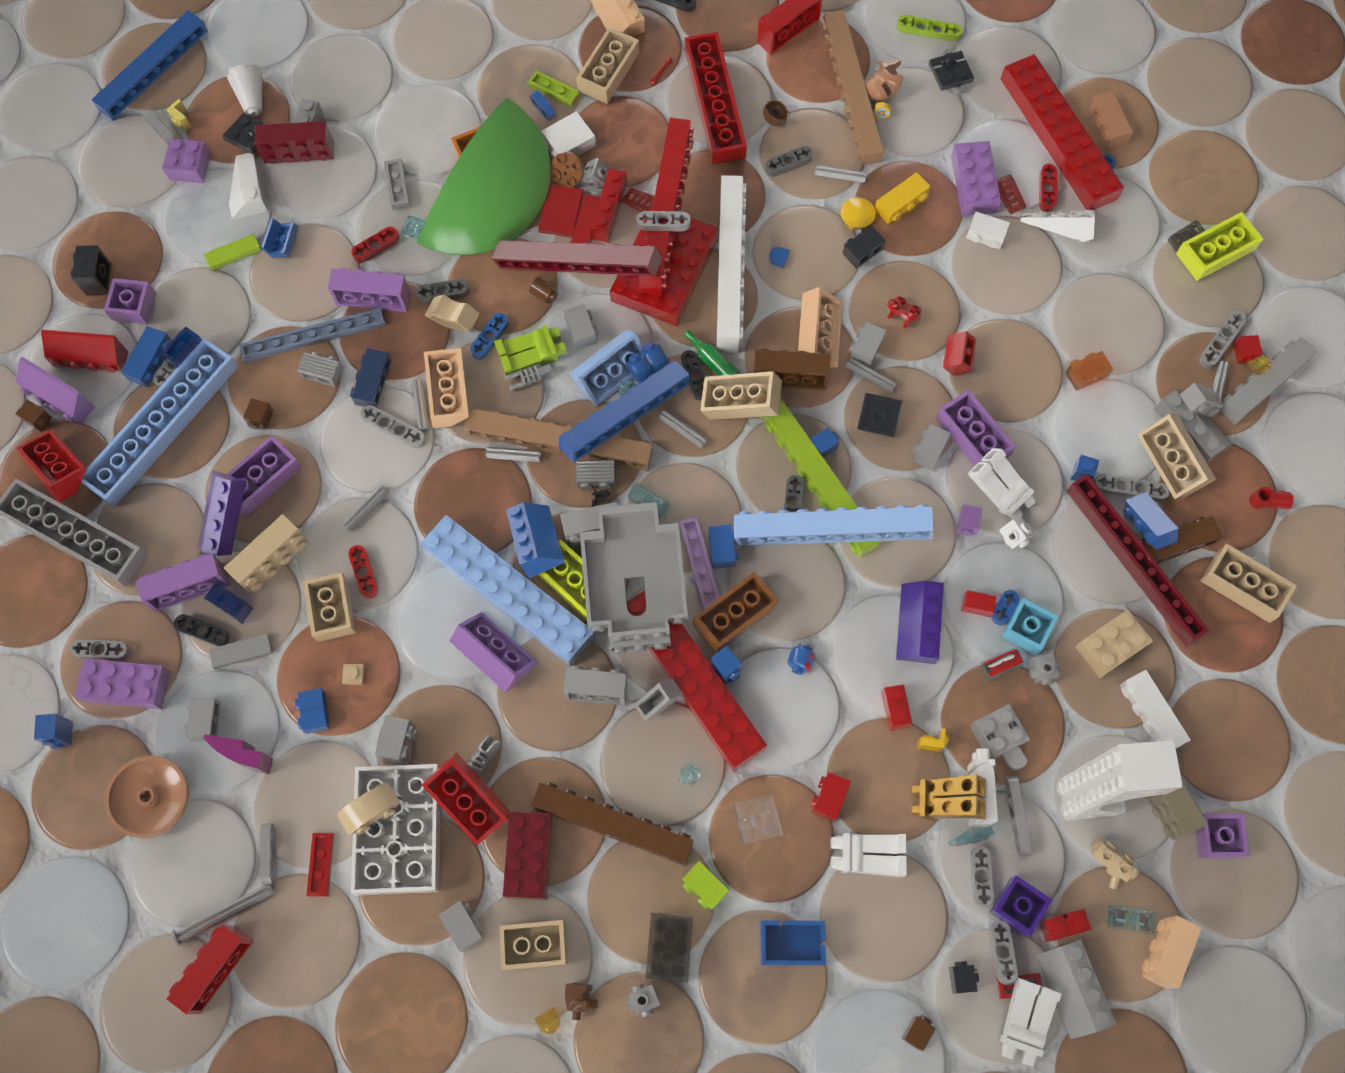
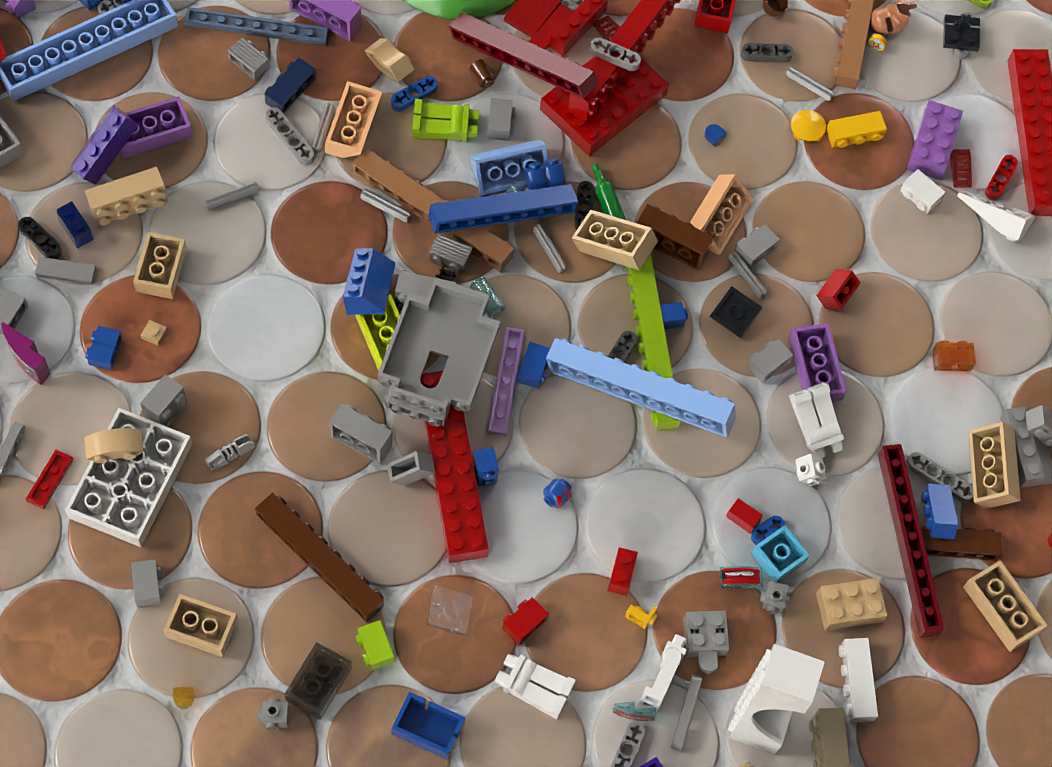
camera: 15 degrees right, 5 degrees down
(182, 582) = (42, 188): medium lavender brick -> none
(258, 414) = (175, 74): reddish brown brick -> none
(369, 577) = (201, 242): red beam -> none
(446, 284) = (405, 35): dark grey beam -> none
(466, 798) = (201, 476): red slope -> none
(492, 651) = (284, 365): medium lavender slope -> none
(508, 590) = (323, 319): light blue brick -> none
(527, 856) = (232, 550): dark red brick -> none
(529, 375) = (432, 143): light grey hinge -> none
(578, 999) = (218, 688): reddish brown piece -> none
(689, 774) = (407, 546): clear light blue tile -> none
(731, 265) = (663, 121): white brick -> none
(735, 612) = (517, 425): dark orange brick -> none
(863, 246) = (797, 157): black brick -> none
(903, 309) = (806, 228): red plate -> none
(920, 622) = (682, 508): dark purple slope -> none
(951, 798) = (631, 665): pearl gold hips -> none
(969, 520) = (773, 439): medium lavender brick -> none
(1083, 466) = (906, 438): blue brick -> none

